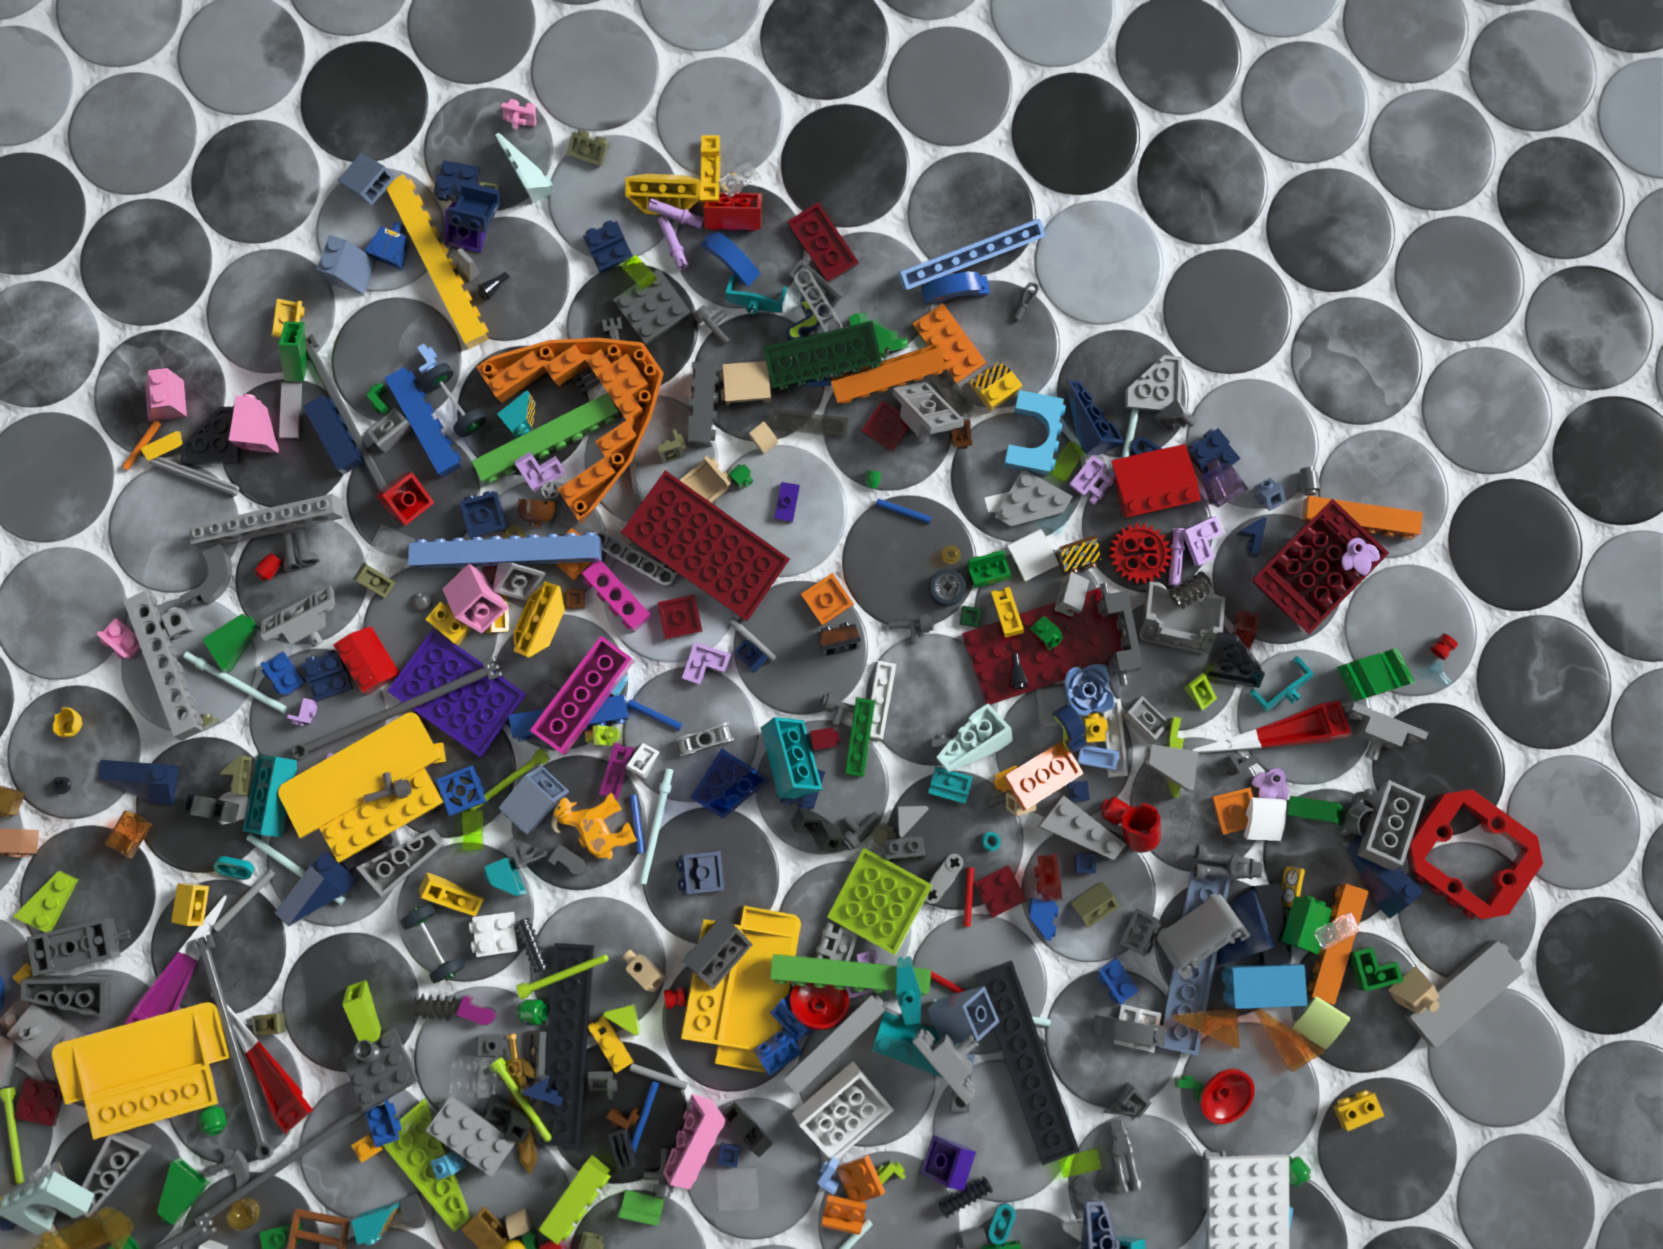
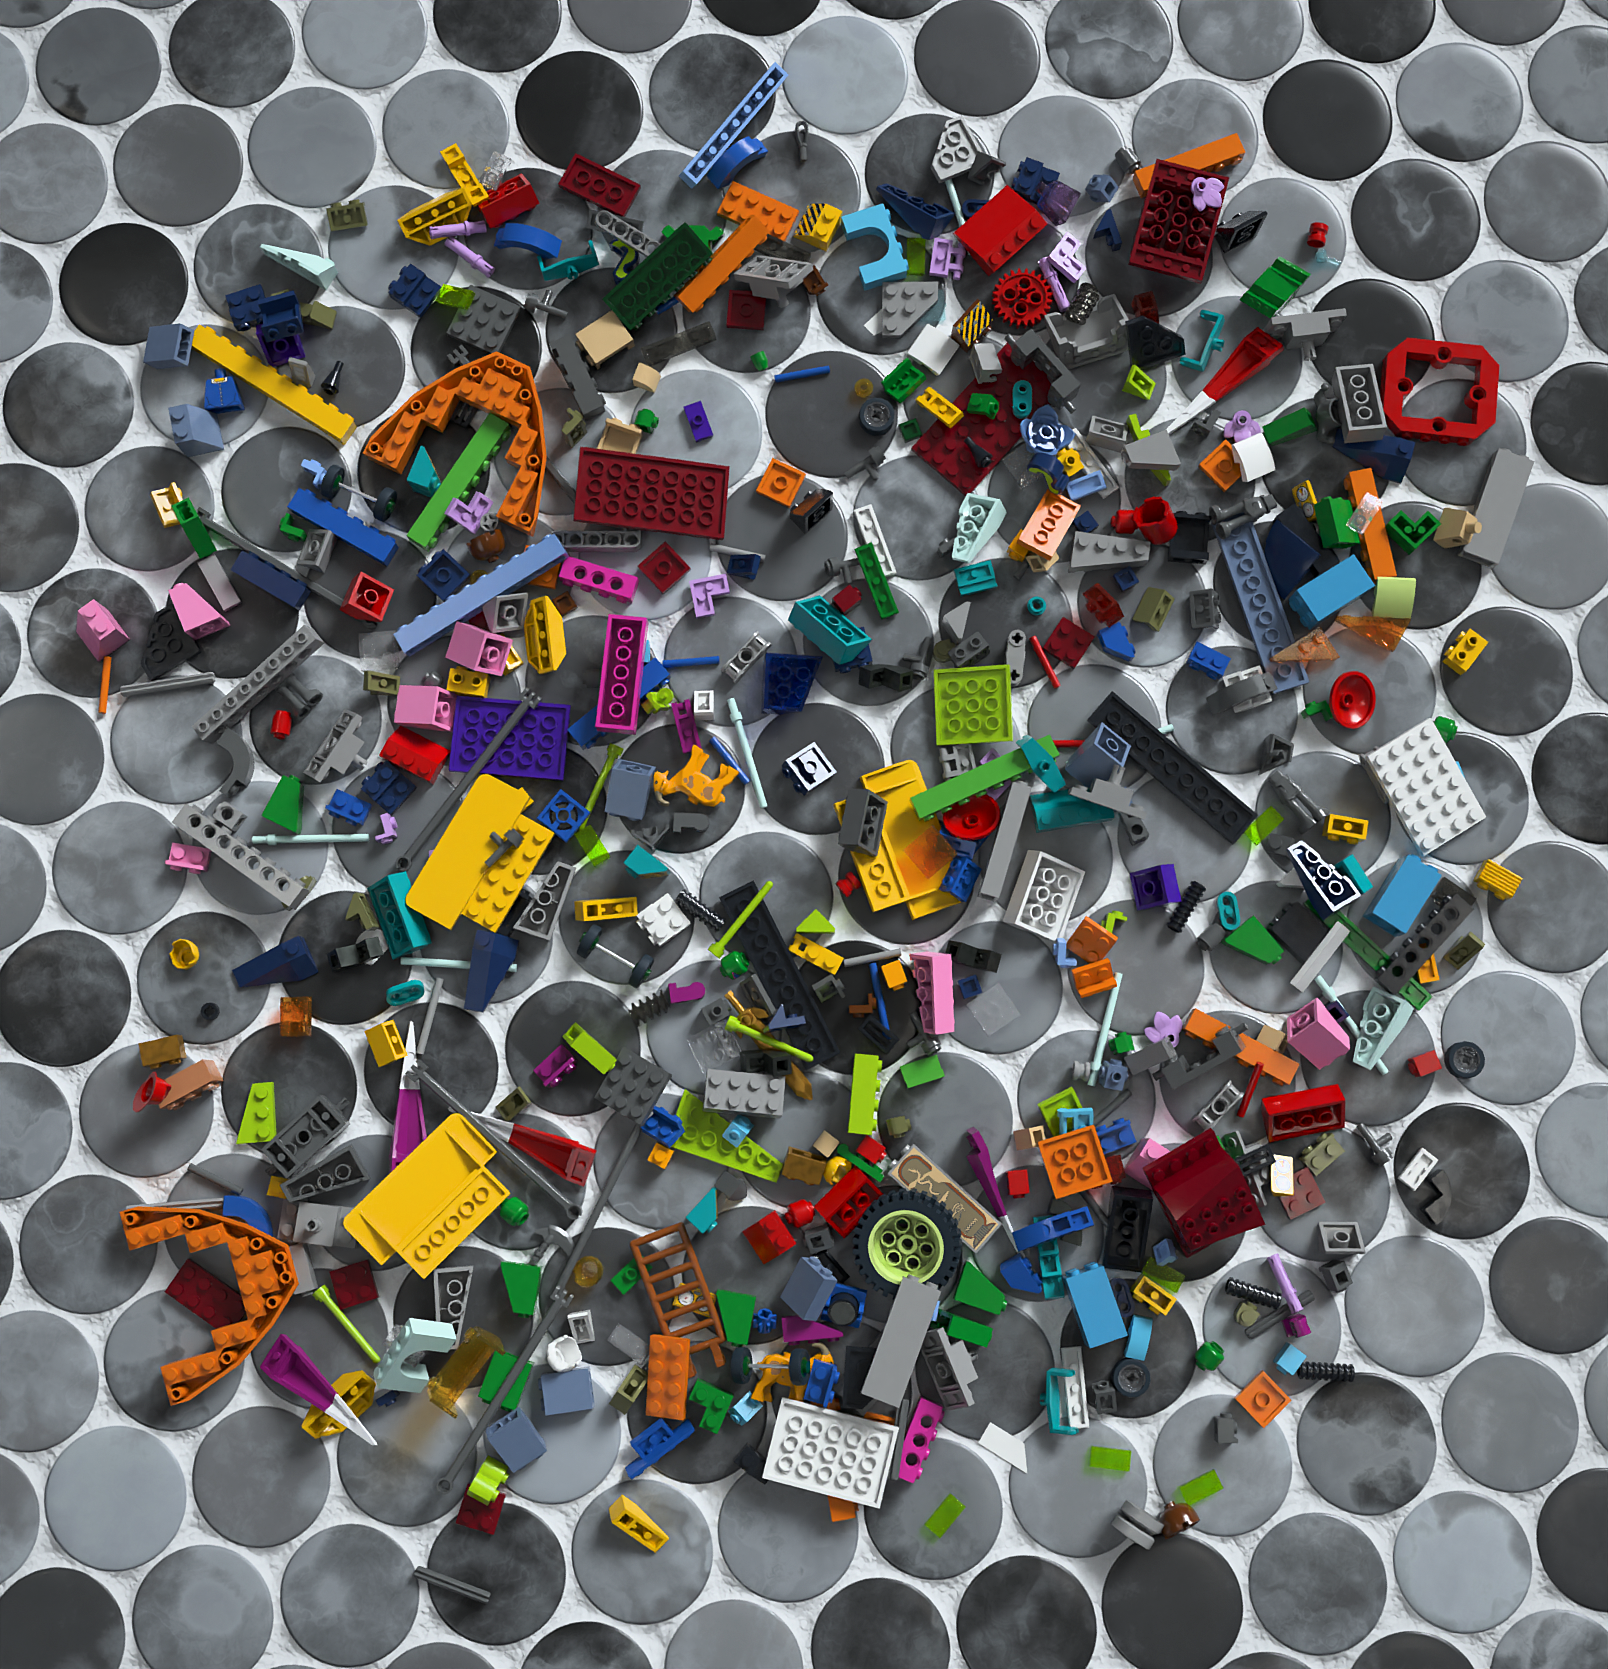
camera: 30 degrees left, 0 degrees up
(162, 445) = (125, 673): yellow slope -> none
(324, 1010) = (555, 1066): none -> magenta bracket
(362, 1051) = (610, 1072): dark grey wheel -> none
(399, 624) = (425, 708): none -> bright pink slope
(511, 221) = (318, 315): none -> olive slope
(519, 115) = (268, 220): bright pink hips -> none
(649, 977) = (816, 878): tan torso -> none
(667, 1105) = (894, 975): none -> light orange brick
(763, 1013) = (930, 851): none -> clear orange plate
(1086, 646) = (1022, 398): none -> teal plate
(1152, 1211) = (1345, 828): none -> yellow brick
(1166, 860) = (1191, 539): none -> black panel
(1200, 934) = (1255, 579): light grey windscreen -> none
(1374, 601) = (1239, 229): none -> black slope

